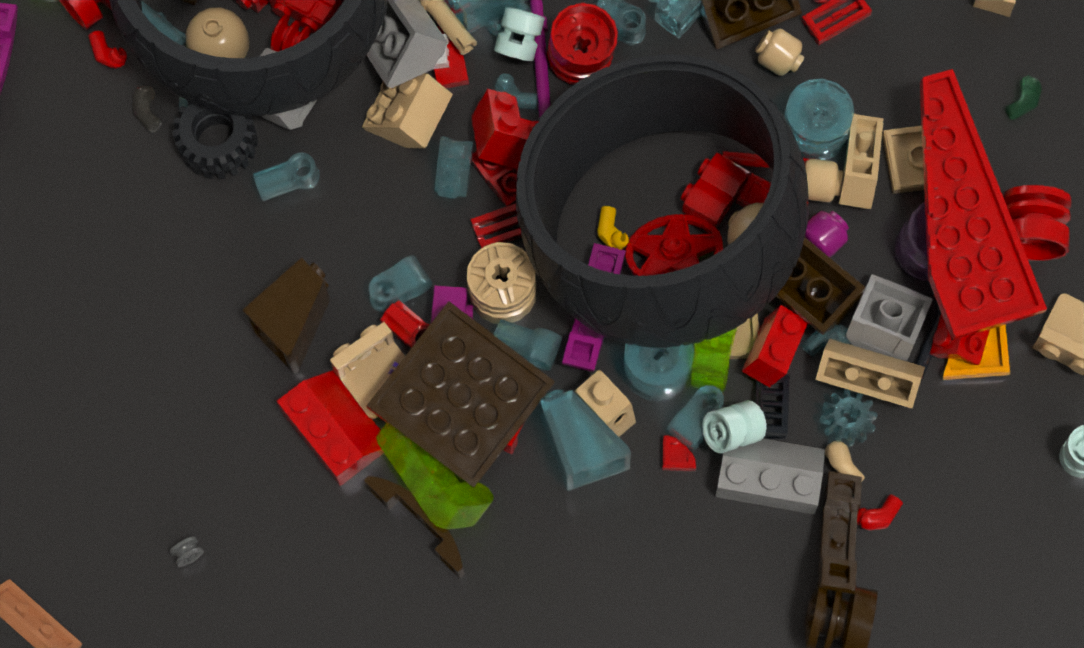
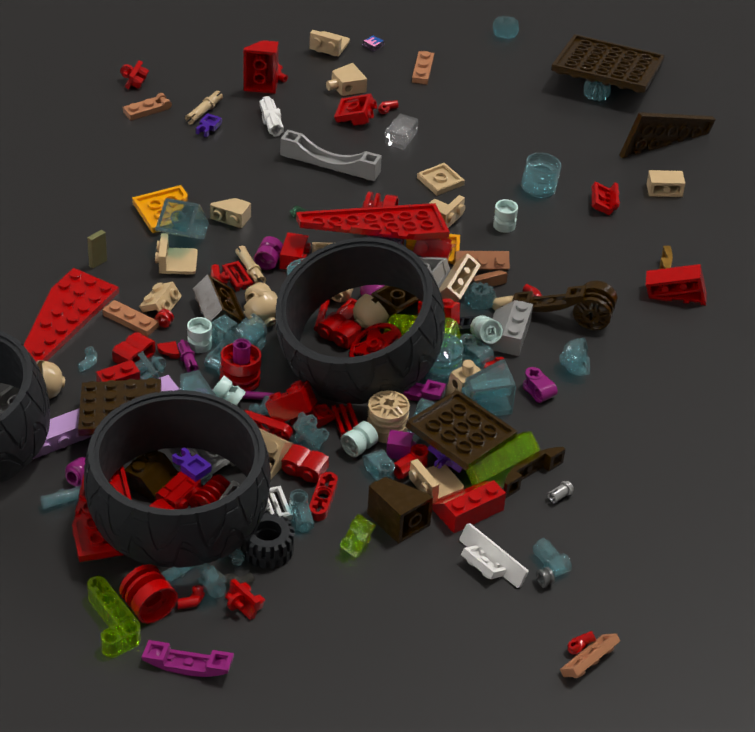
camera: 90 degrees left, 30 degrees down
(62, 607) = (578, 643): none -> red arm
(95, 130) = (241, 598): none -> red hips
(123, 70) = (212, 580): none -> clear light blue hips
(213, 460) = (490, 558): none -> white bracket
(219, 565) = (551, 557): none -> clear light blue piece
(234, 261) = (357, 535): none -> clear neon green hips
(306, 212) = (322, 489): none -> red beam
(307, 130) = (287, 514): none -> white tile
(379, 573) = (561, 491): none -> light grey pin
(390, 171) = (305, 463): none -> red brick
(450, 245) = (359, 439): none -> light aqua wheel
(468, 100) = (275, 427): none -> red beam
(594, 23) = (241, 351): none -> magenta beam
(621, 533) = (539, 385): none -> magenta piece
(663, 40) = (252, 330): none -> clear light blue cylinder
(700, 592) = (576, 357): none -> clear light blue cylinder
(730, 52) = (263, 306): none -> tan cylinder
(851, 36) = (253, 269): none -> tan pin
(892, 53) = (268, 253): none -> magenta wheel
(899, 94) = (294, 248): none -> red brick
(907, 432) = (492, 278): none -> nougat slope
(949, 416) = (488, 259): none -> nougat plate

